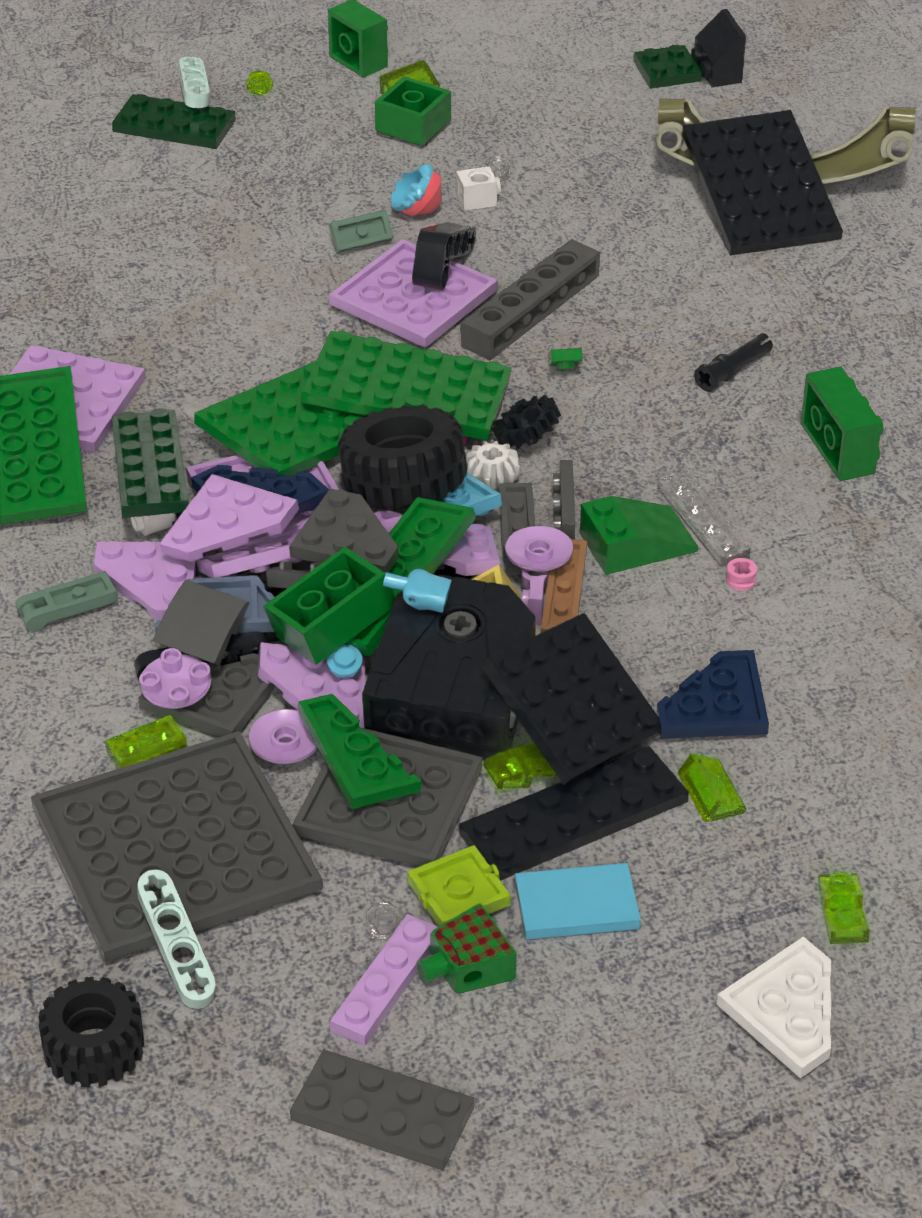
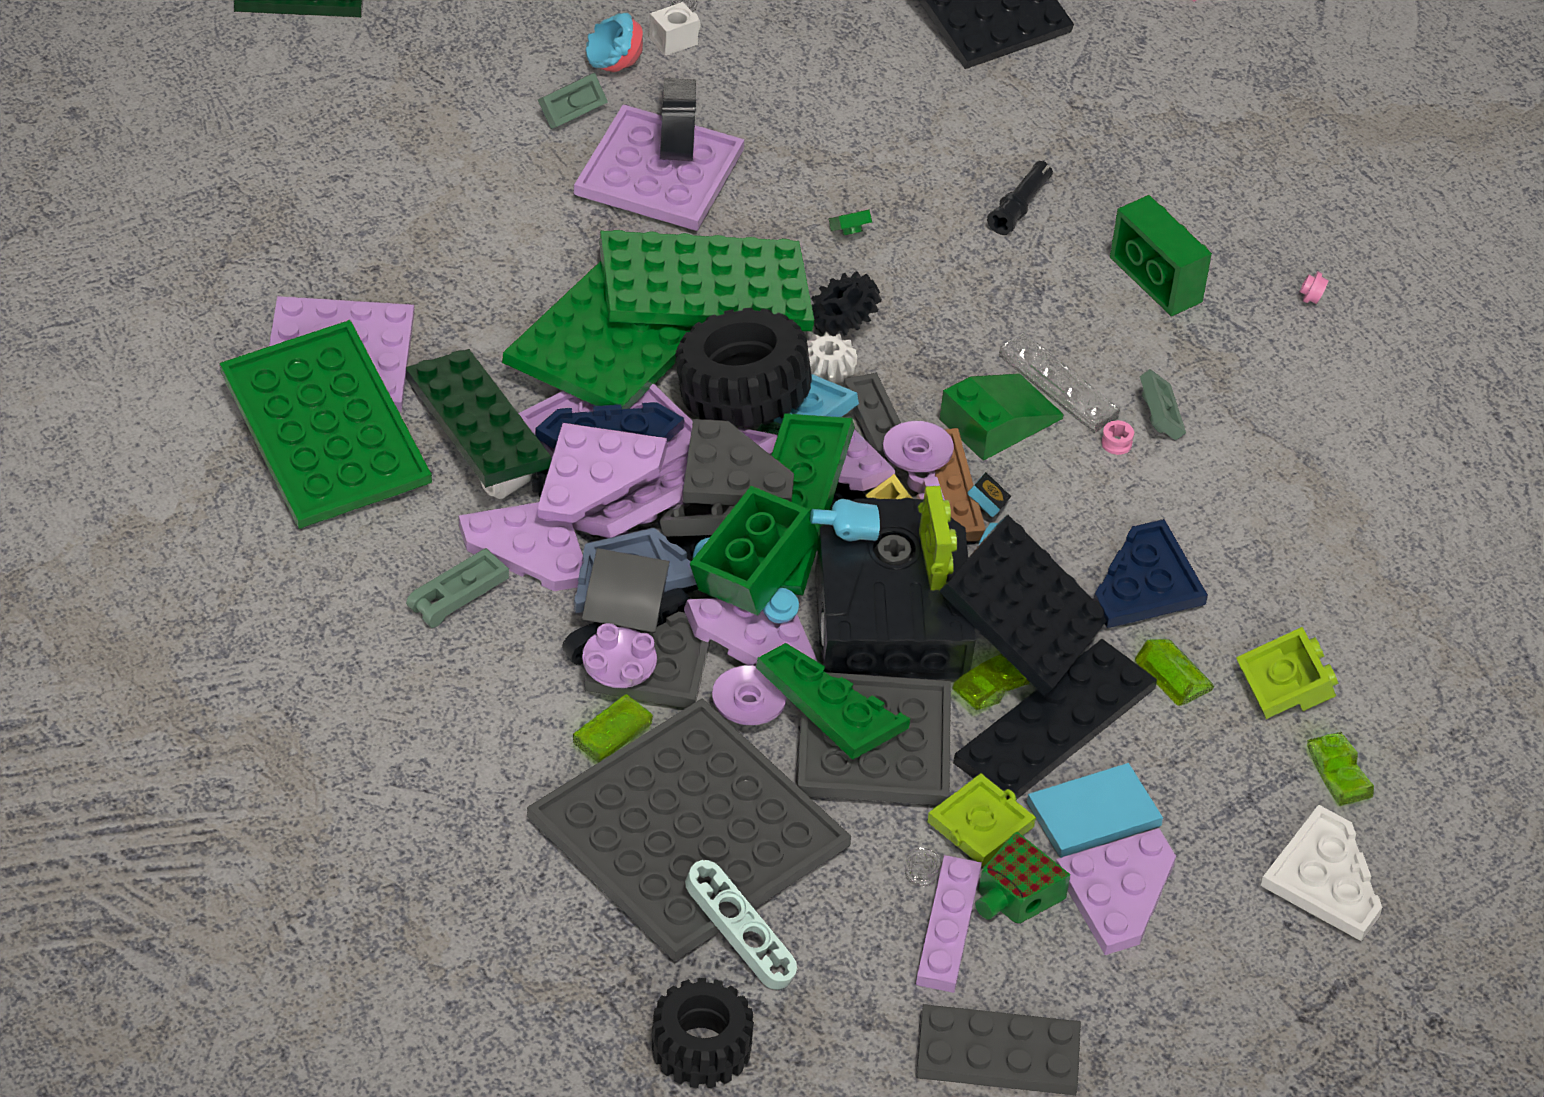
camera: 20 degrees left, 5 degrees up
(492, 613) = (936, 537): none -> lime plate
(529, 299) = (785, 157): dark grey brick -> none
(564, 501) = (917, 385): dark grey plate -> none
(572, 977) = (1119, 886): none -> lavender plate
(592, 601) = (989, 494): none -> tile
(794, 552) = (1162, 404): none -> sand green plate
(822, 809) = (1288, 673): none -> lime plate

